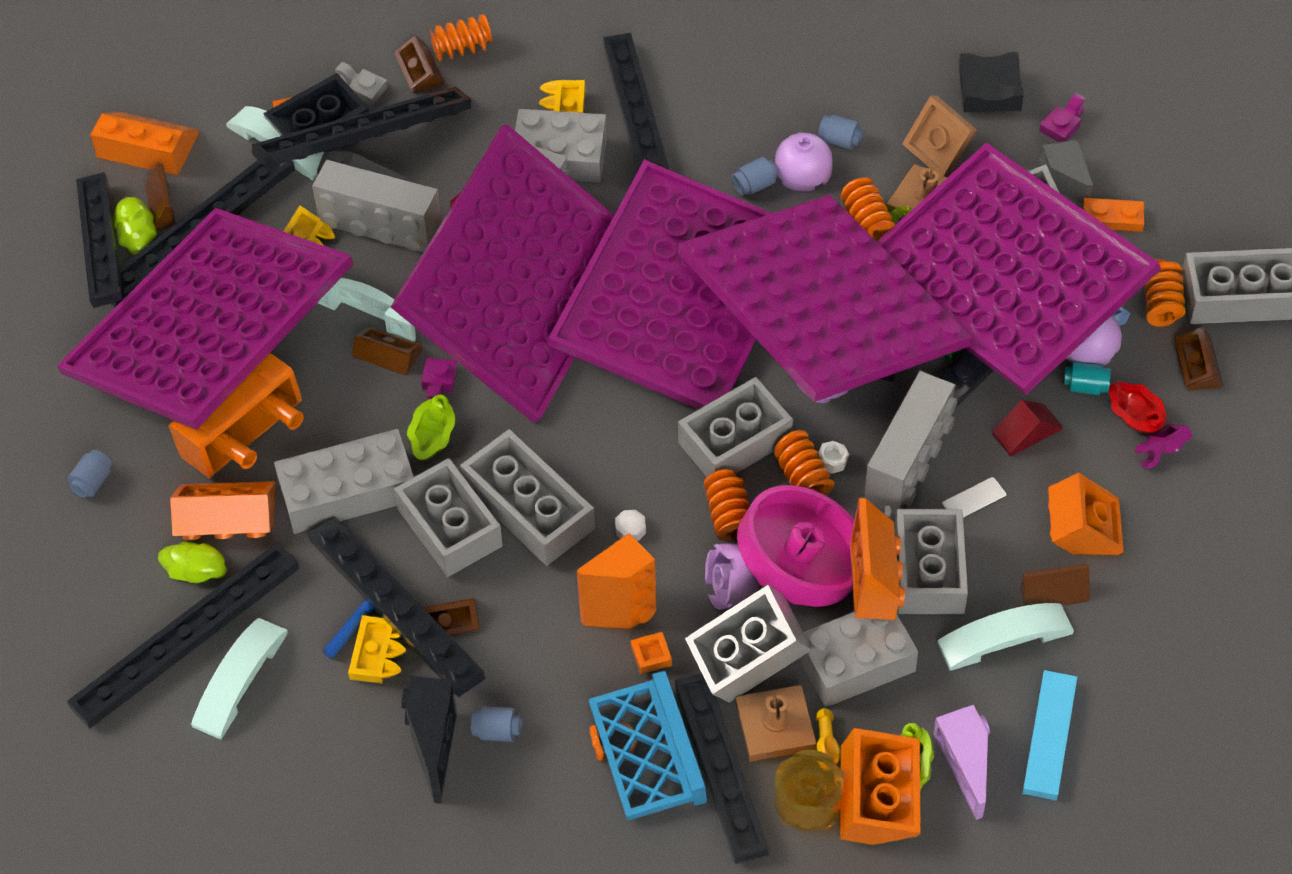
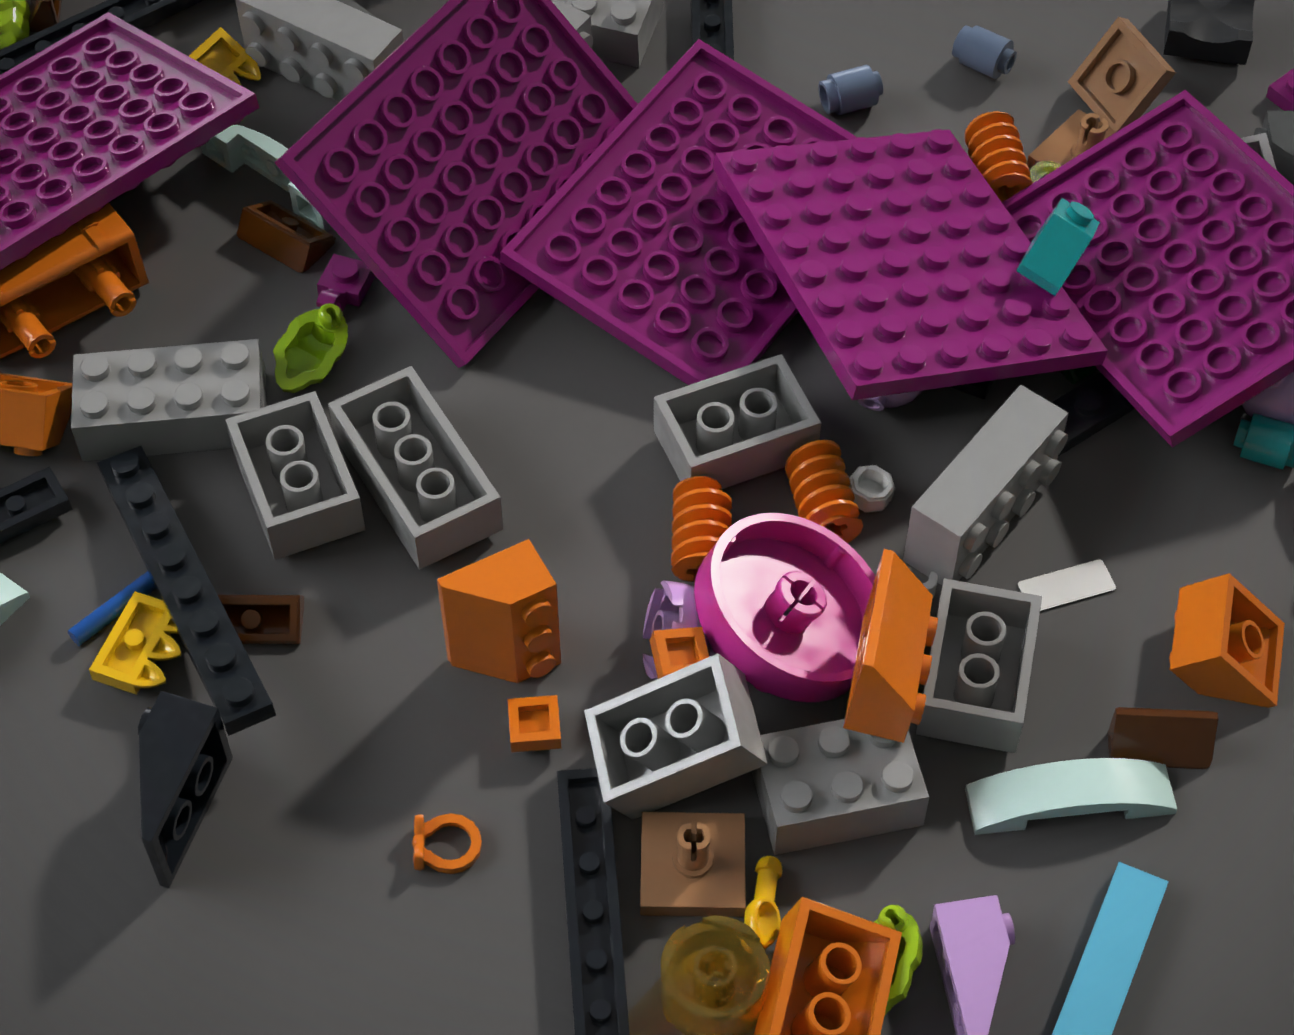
camera: 10 degrees right, 0 degrees up
(496, 724) = (279, 785): sand blue brick -> none
(630, 522) = (554, 534): white tile -> none
(677, 746) = (536, 869): dark azure fence -> none
(738, 587) = (677, 649): none -> orange plate
(803, 162) = (924, 82): lavender cylinder -> none
(924, 270) = (1058, 245): none -> teal slope
(1025, 426) = (1164, 495): dark red slope -> none

